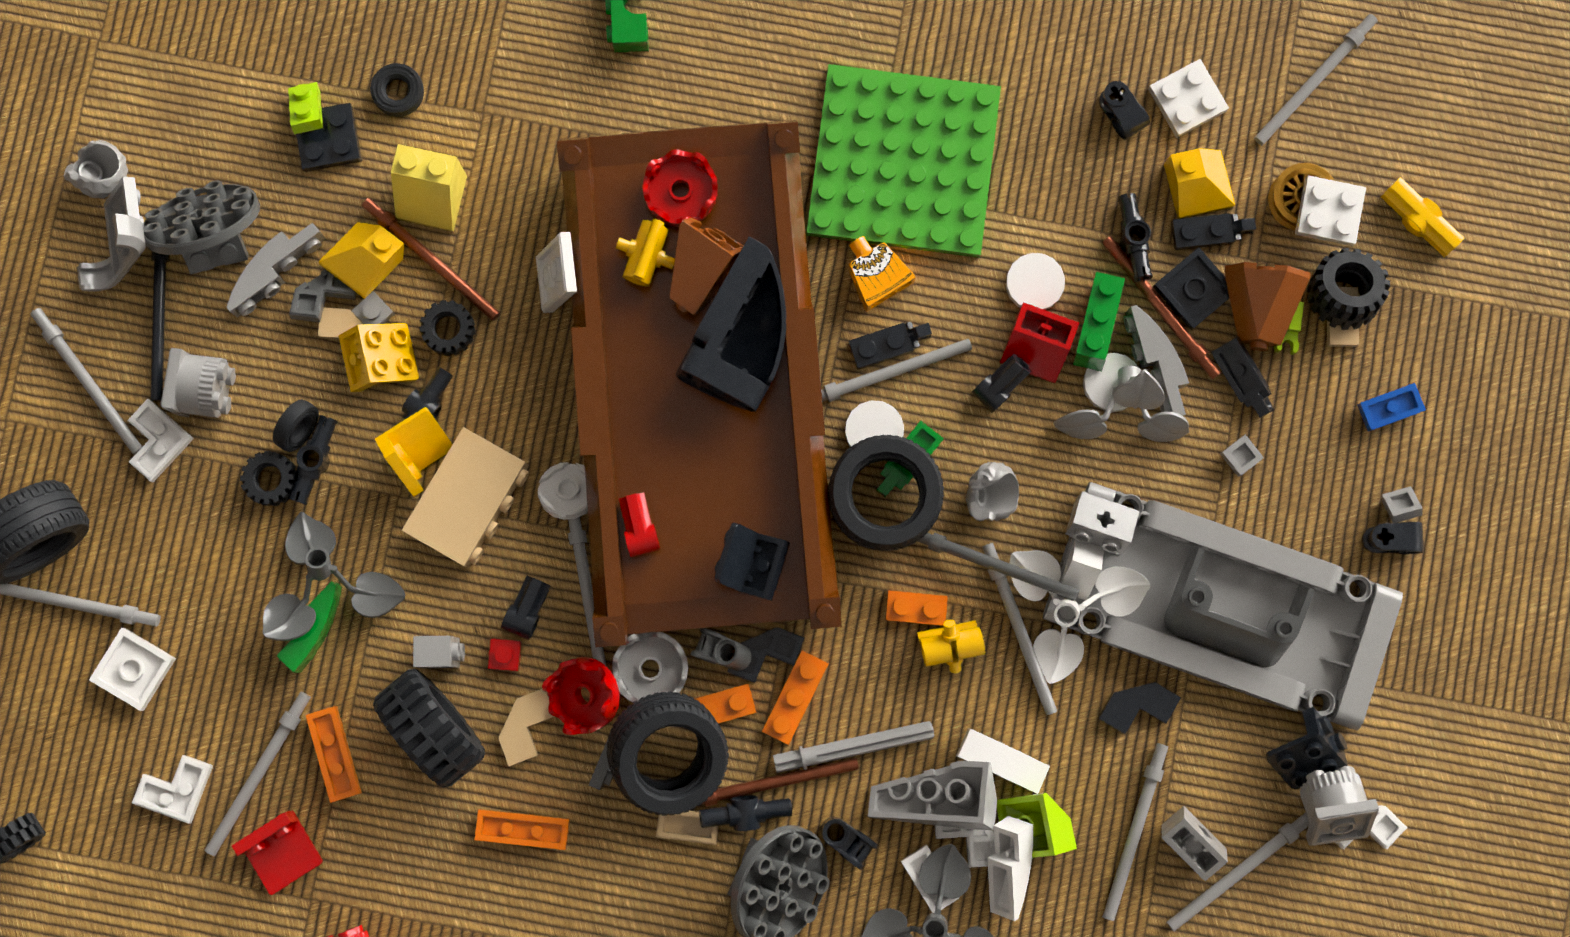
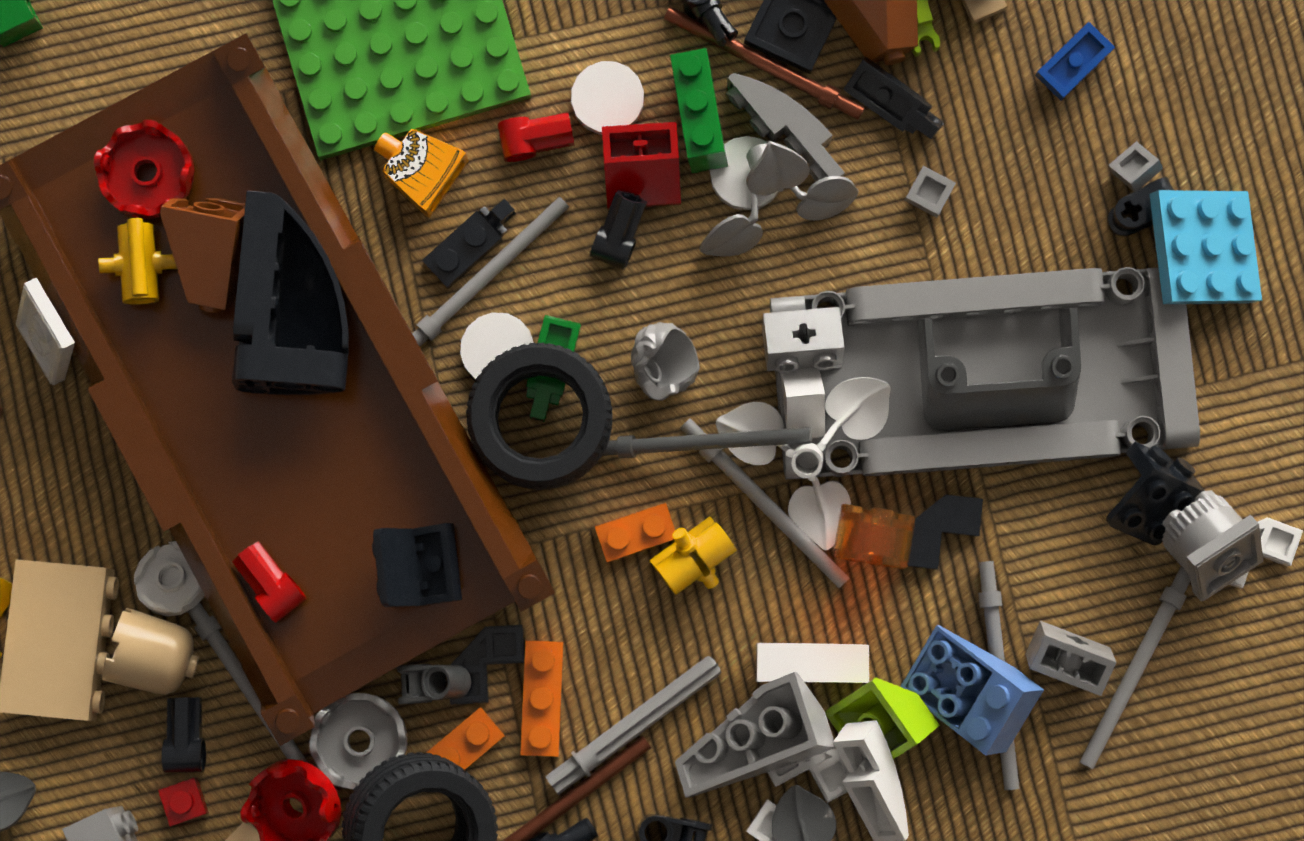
camera: 20 degrees left, 0 degrees up
(530, 539) = (150, 654): none -> tan cylinder
(963, 285) = (525, 138): none -> red piece
(1089, 689) = (874, 536): none -> clear orange brick
(1111, 834) = (972, 691): none -> medium blue slope
(1428, 587) = (1205, 247): none -> medium azure plate

